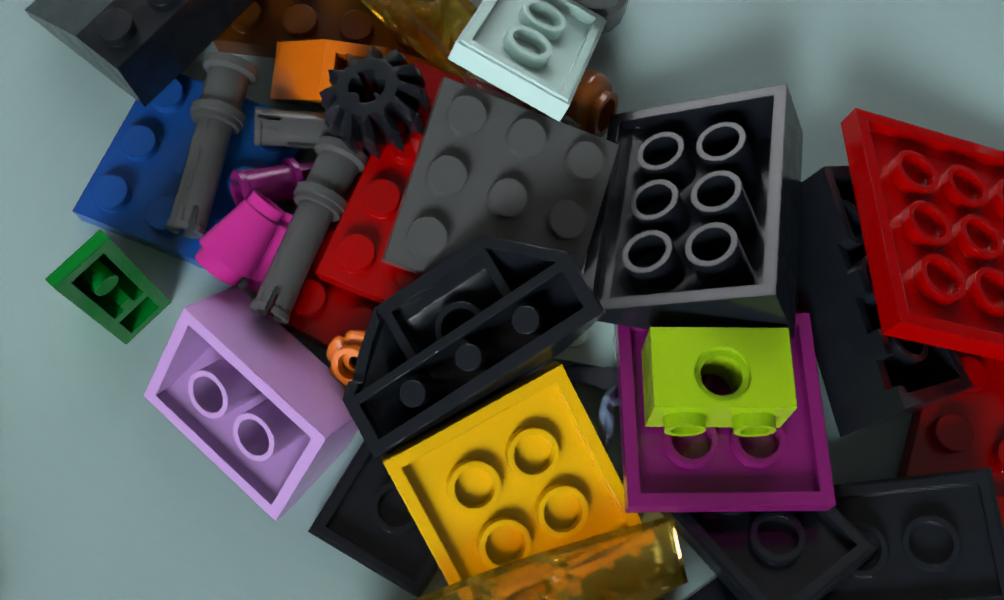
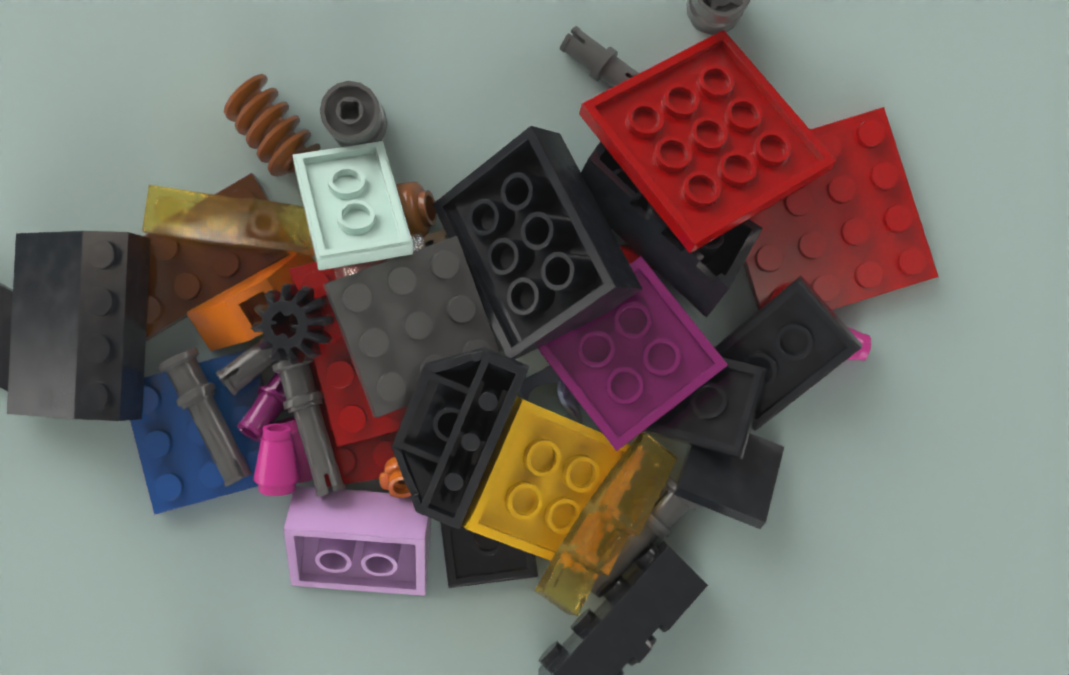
camera: 30 degrees left, 15 degrees up
(109, 287) = (221, 547): green slope -> none
(749, 359) = (628, 320): lime brick -> none
(883, 89) = (600, 61): none -> dark grey pin

